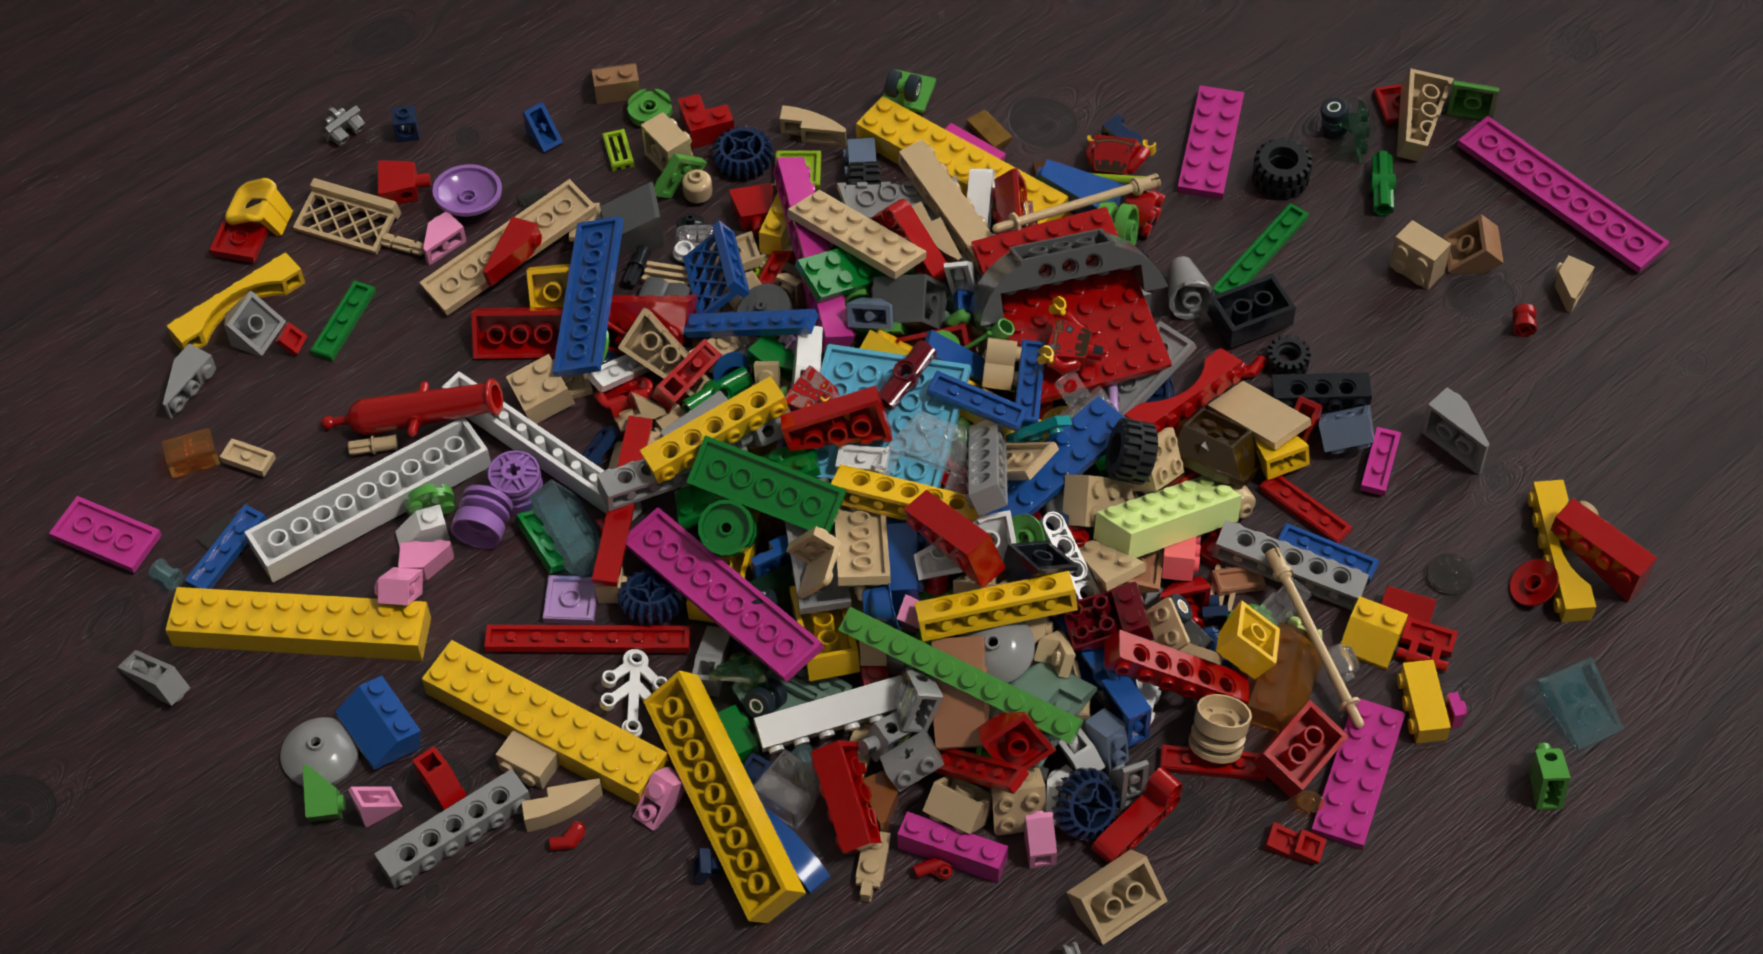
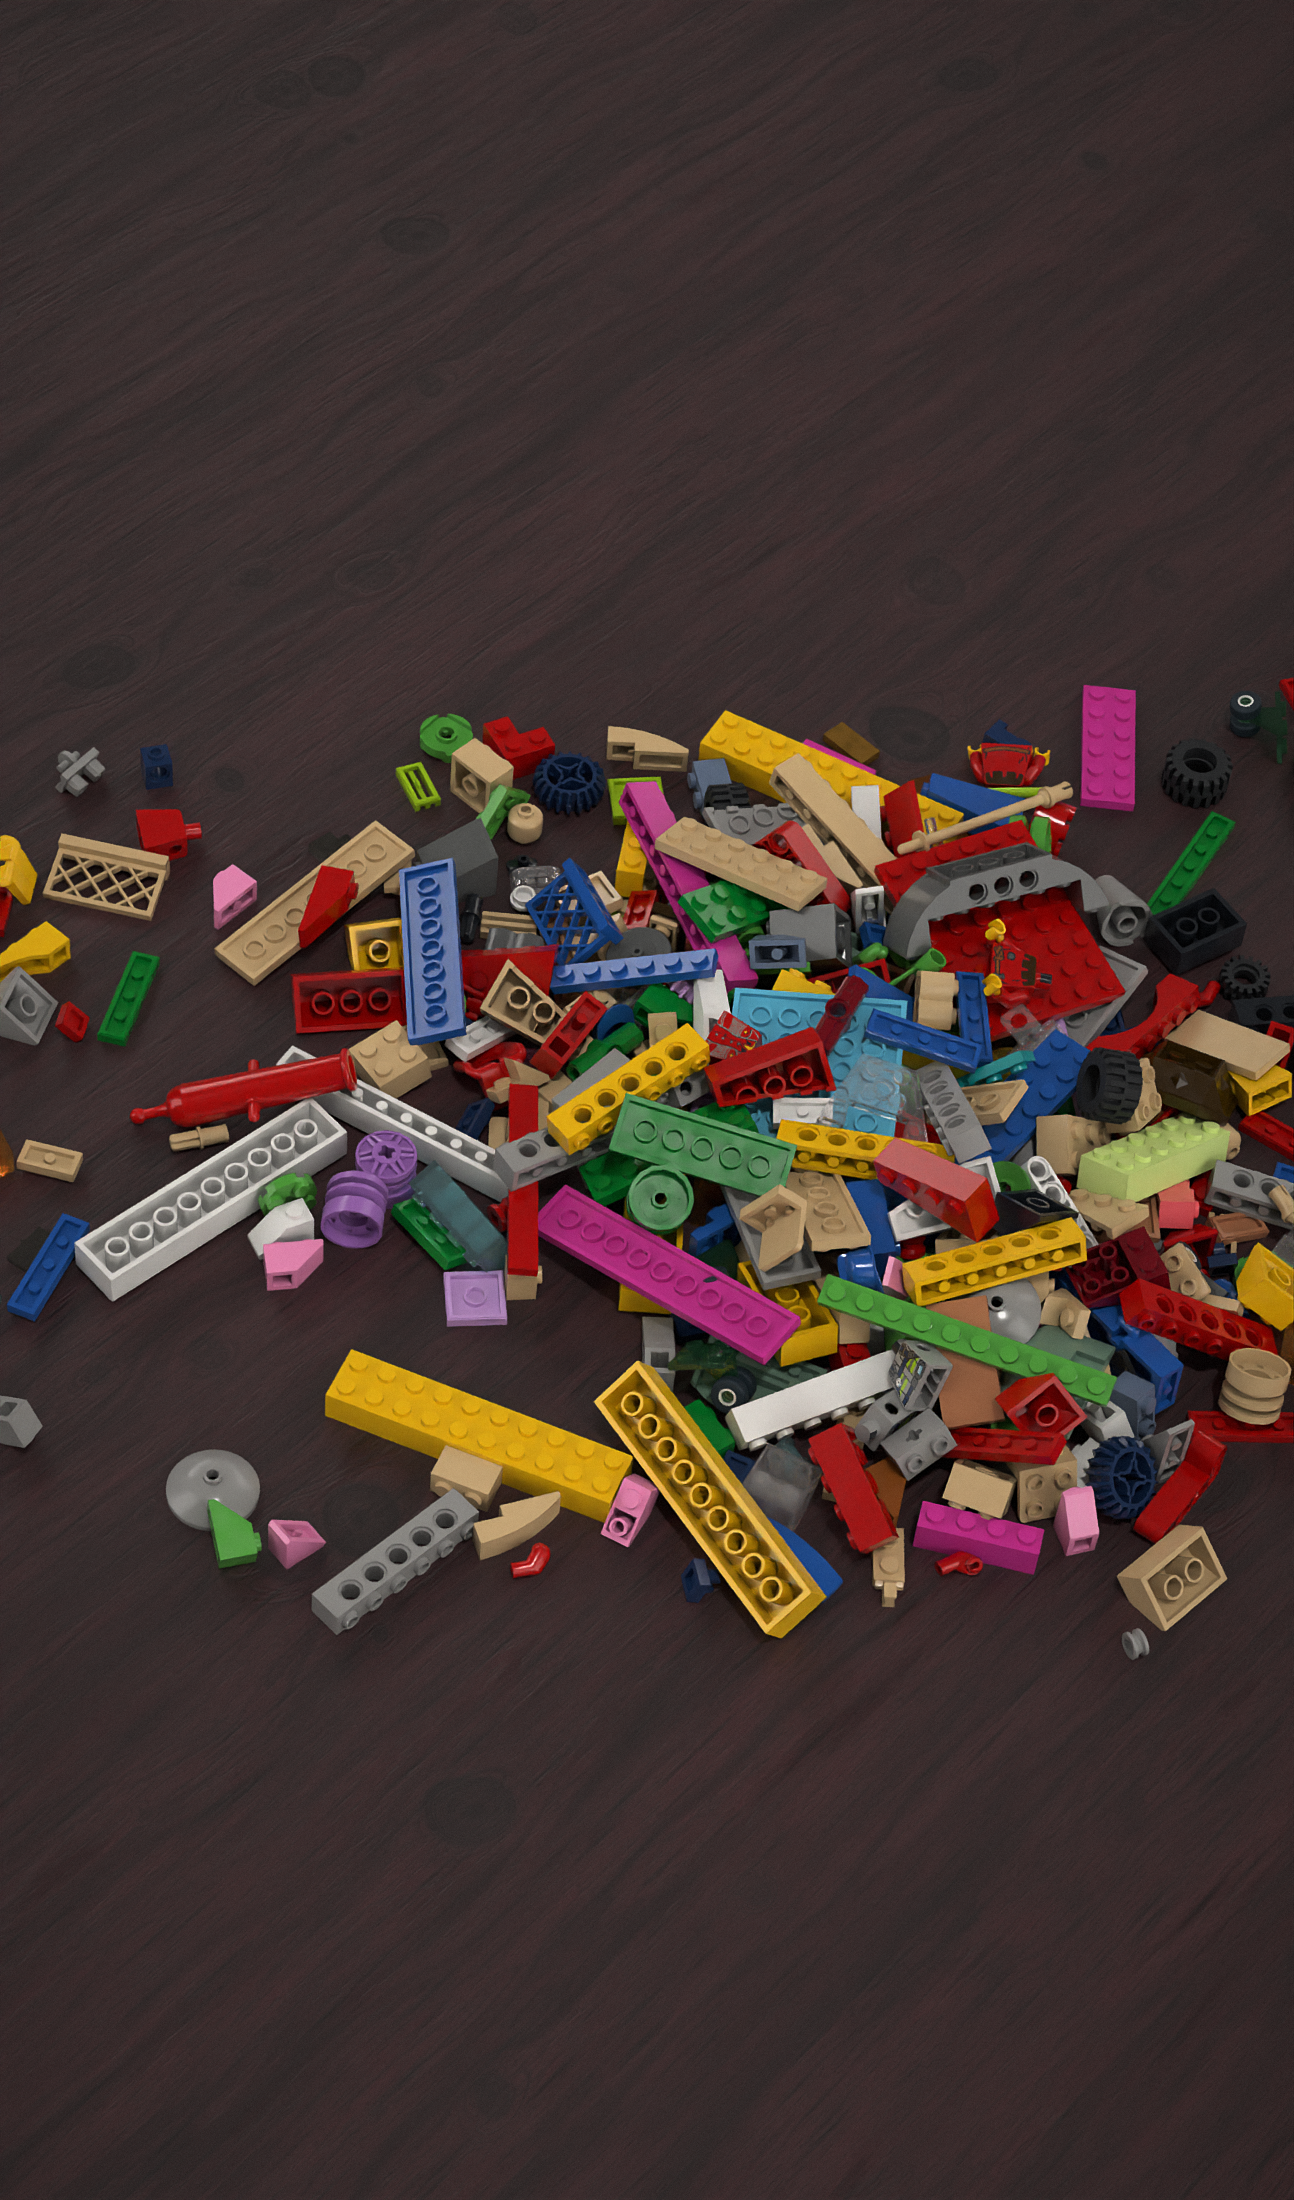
camera: 15 degrees left, 5 degrees down
(298, 624) = (157, 1345): yellow brick -> none
(379, 723) = (282, 1449): blue slope -> none
(399, 586) = (276, 1292): bright pink brick -> none
(402, 244) = (183, 906): tan axle -> none
(438, 778) = (367, 1505): red slope -> none
(467, 190) = (251, 839): medium lavender dish -> none
(541, 127) = (322, 764): blue slope -> none
(587, 638) = (505, 1339): red plate -> none
(615, 83) = (399, 709): medium nougat slope -> none
(632, 688) = (570, 1365): white plant -> none
(649, 598) = (572, 1288): dark blue gear -> none
(752, 205) = (595, 844): red torso -> none
(909, 89) = (750, 701): plate -> none

